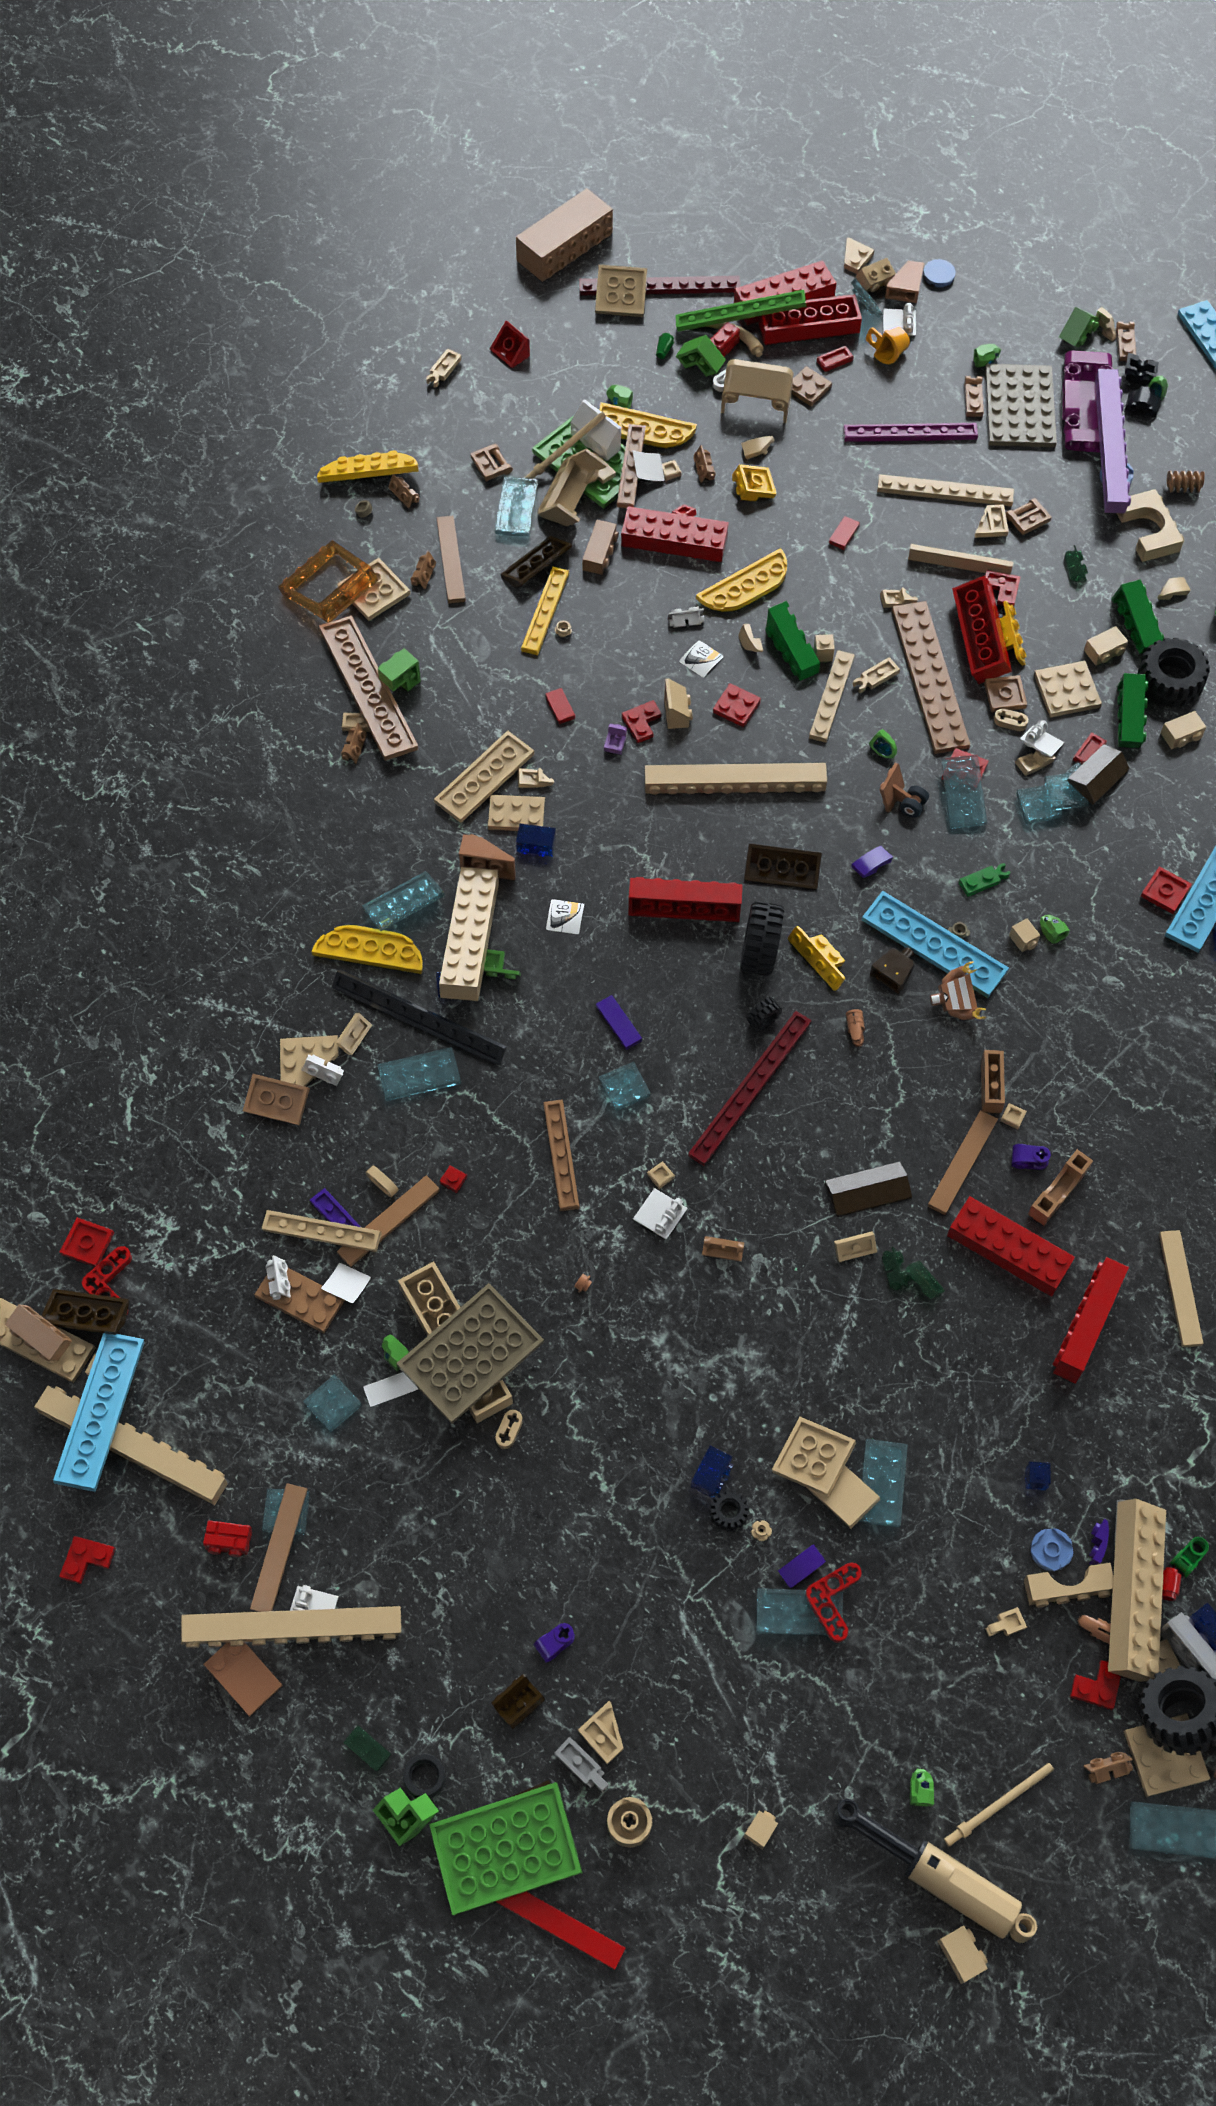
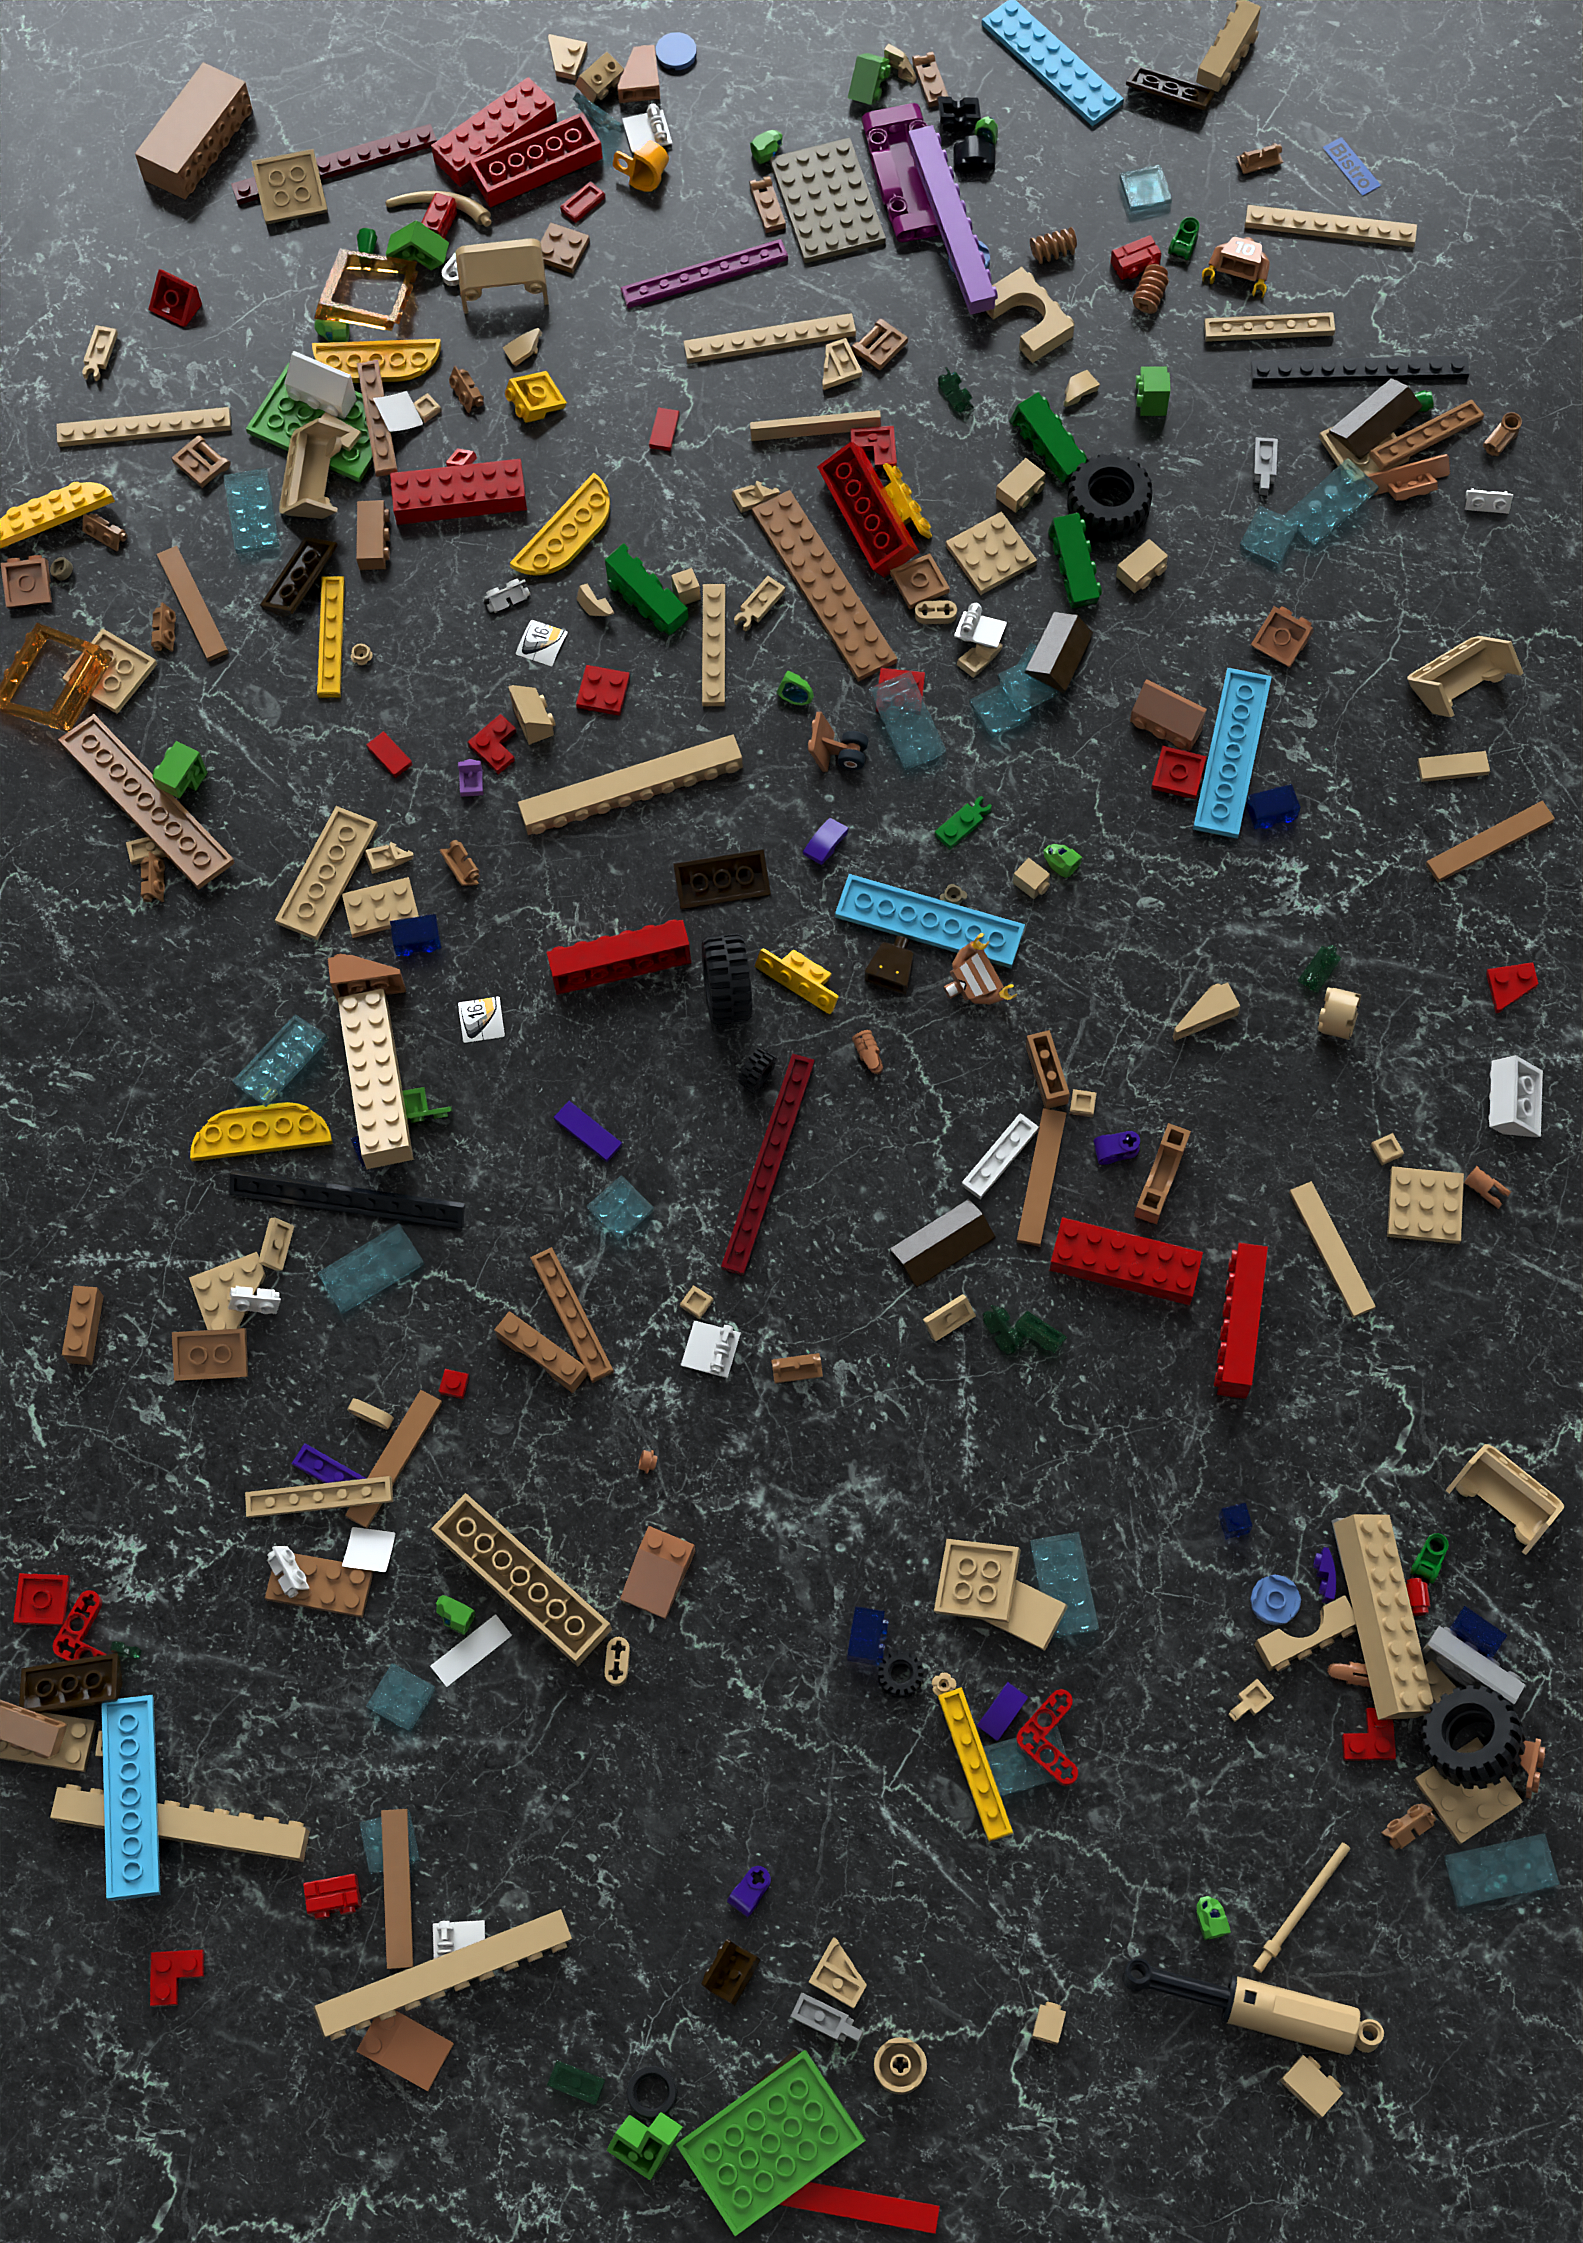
camera: 15 degrees left, 5 degrees up
(142, 1304) = (126, 1651): none -> clear green tile
(188, 1049) = (82, 1325): none -> medium nougat brick
(334, 510) = (26, 581): none -> nougat plate
(458, 428) = (143, 427): none -> tan plate
(470, 1353) = (545, 1589): dark tan plate -> none
(522, 1165) = (548, 1355): none -> medium nougat arch
(539, 468) = (265, 452): tan bar -> none
(563, 1370) = (657, 1572): none -> nougat slope
(588, 803) = (465, 871): none -> medium nougat hinge
(647, 352) = (359, 260): none -> clear orange windscreen
(740, 310) = (448, 174): bright green plate -> none
(766, 1601) = (975, 1764): none -> yellow tile
(934, 1136) = (1000, 1156): none -> white plate
(1088, 748) = (1038, 621): tile -> none
(1139, 1074) = (1212, 1008): none -> tan slope
(1170, 844) = (1168, 715): none -> nougat slope

